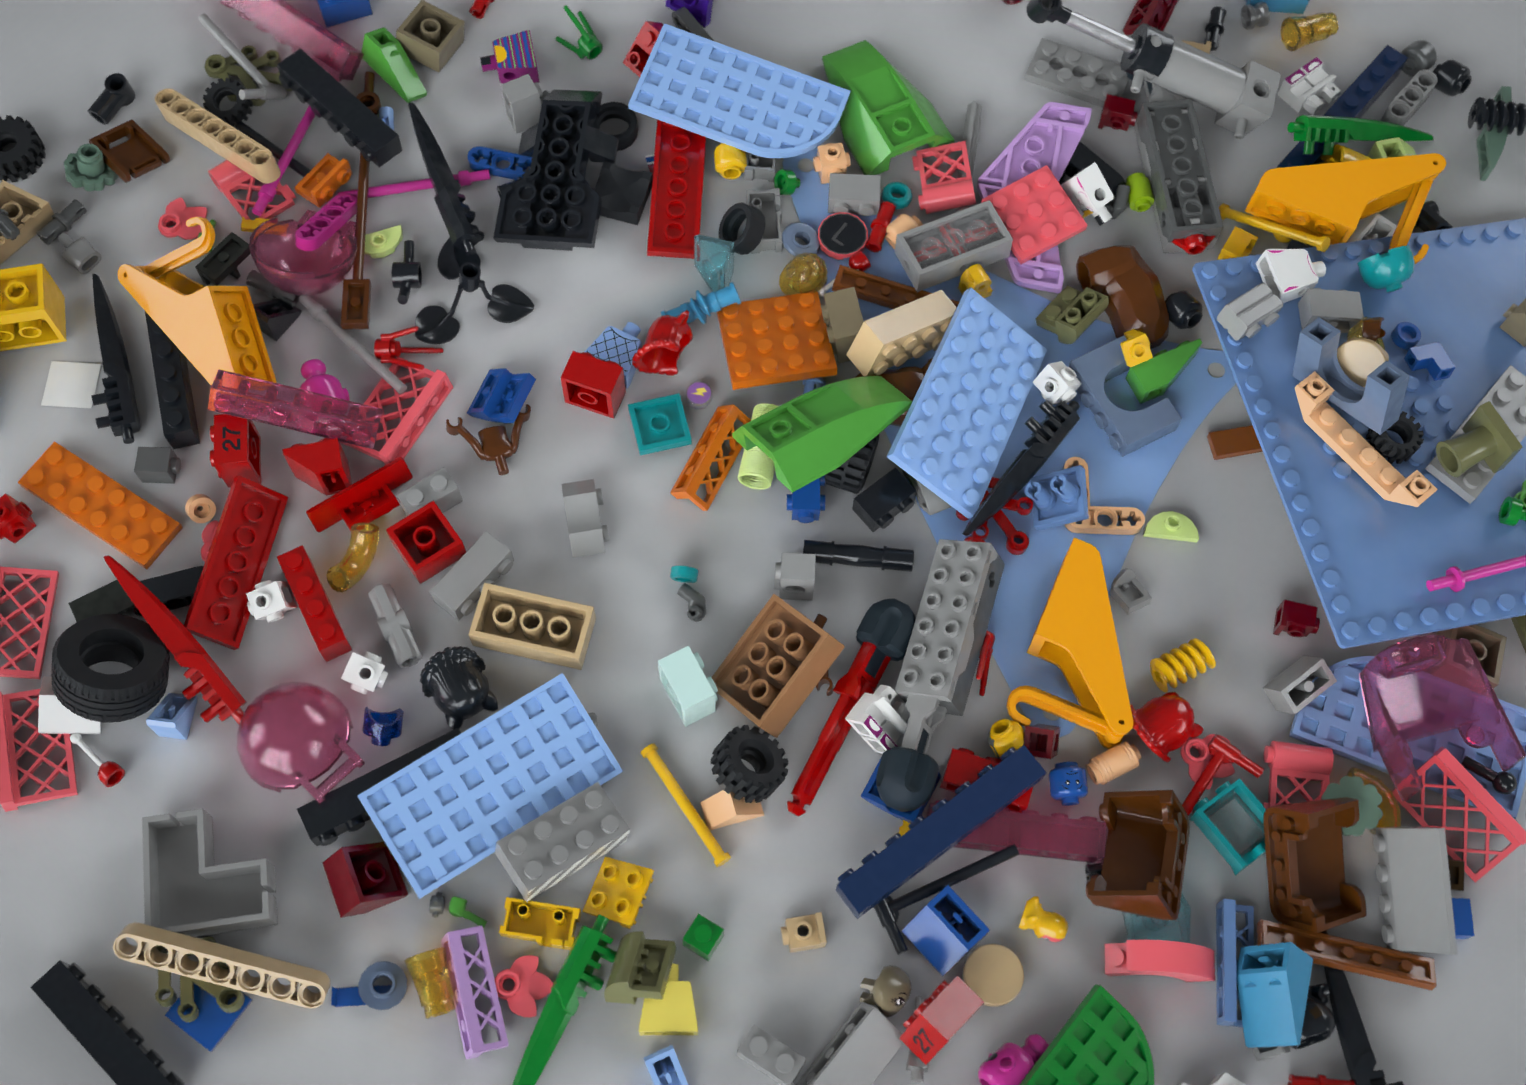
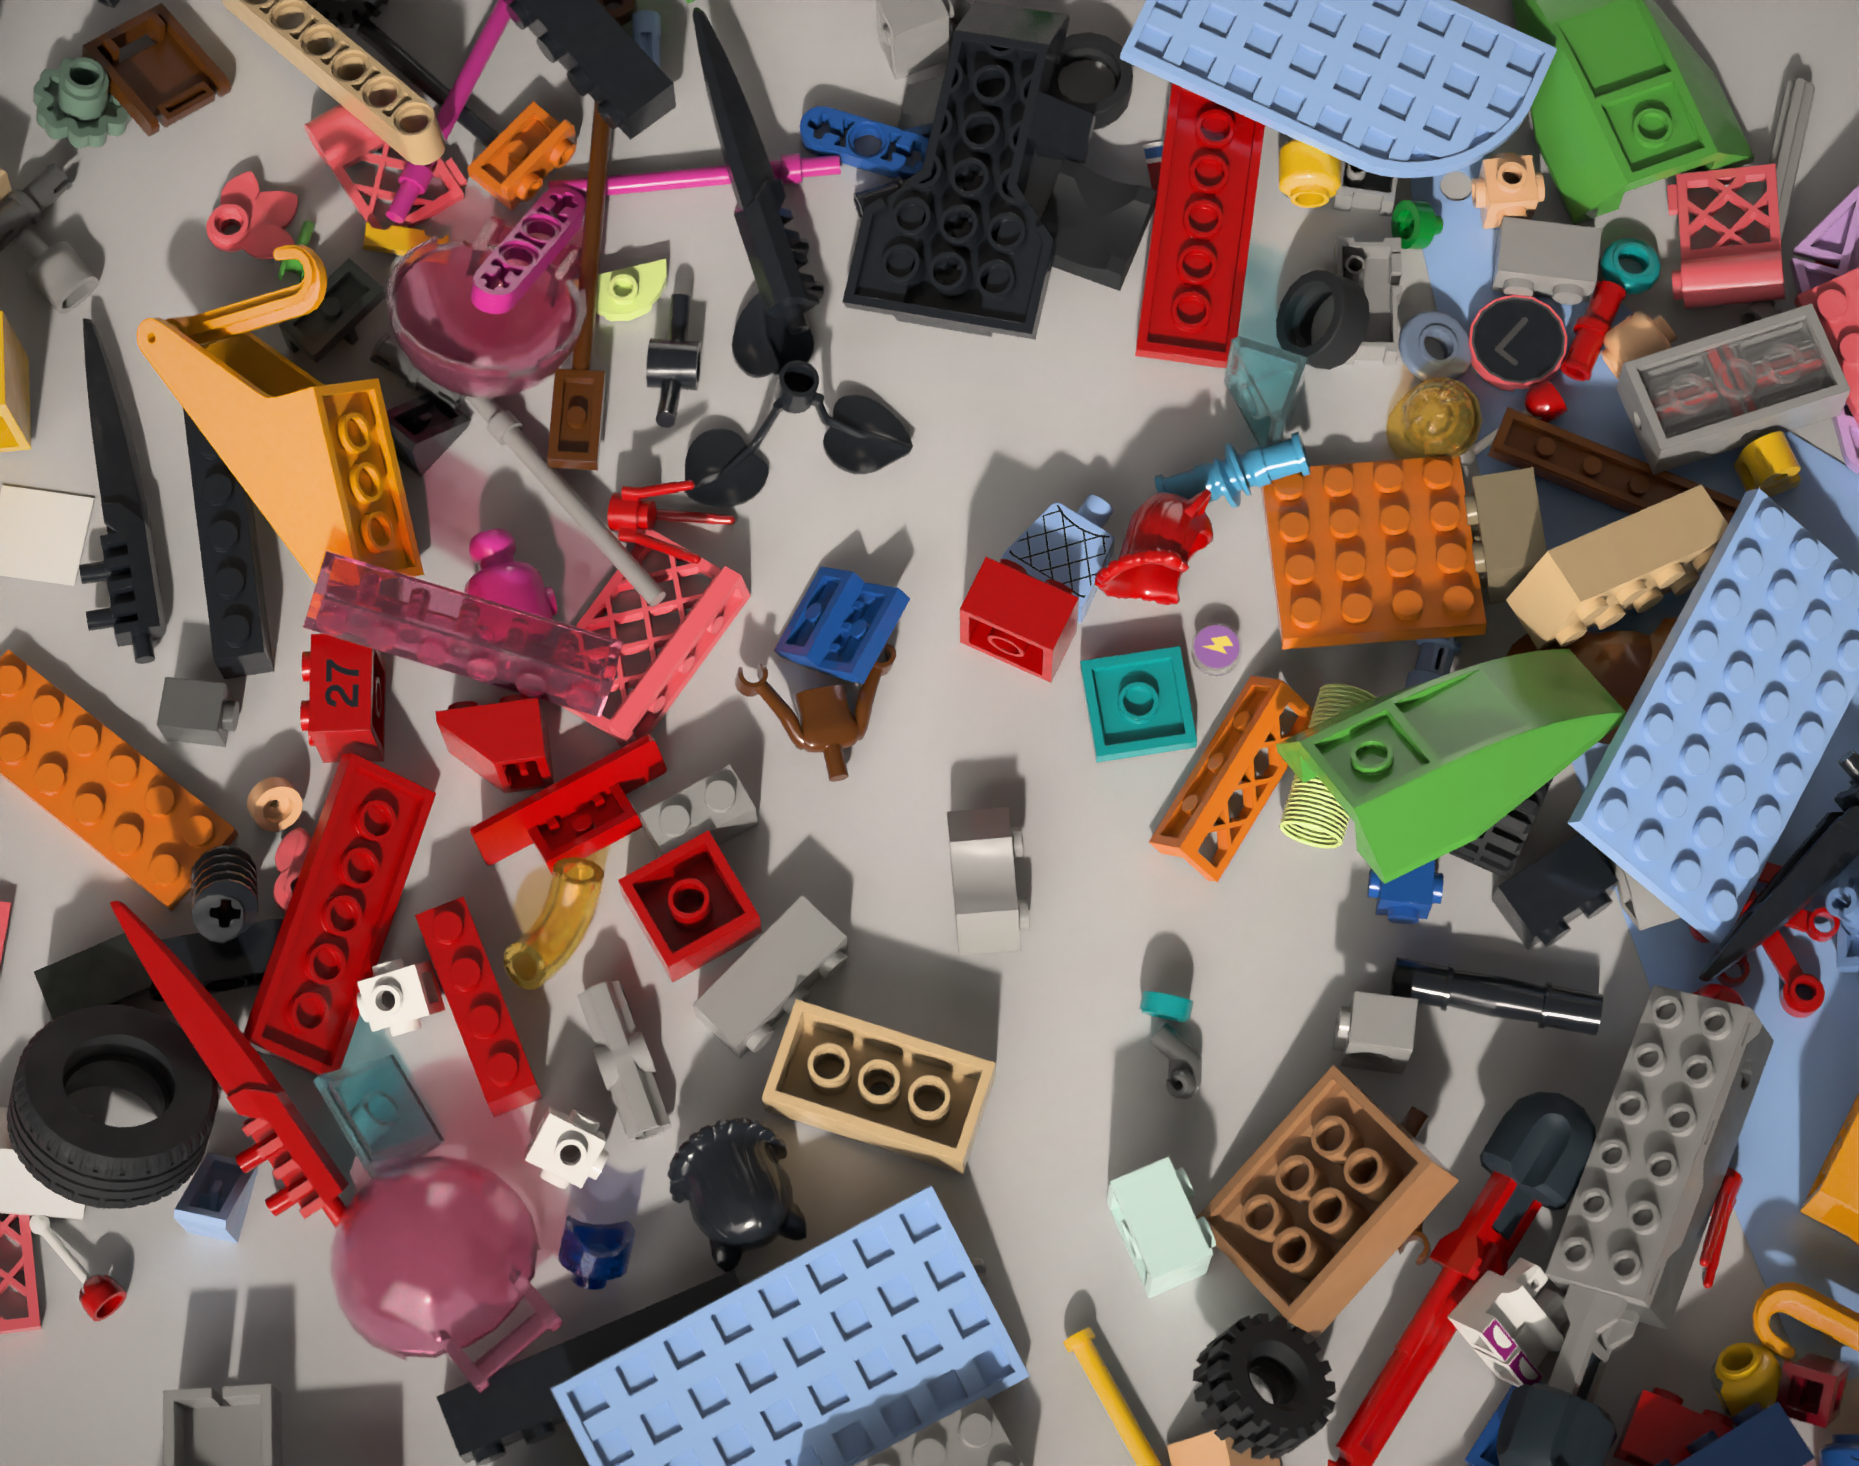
camera: 10 degrees right, 5 degrees up
(171, 553) = (224, 893): none -> black piece
(261, 662) = (379, 1113): none -> clear light blue slope

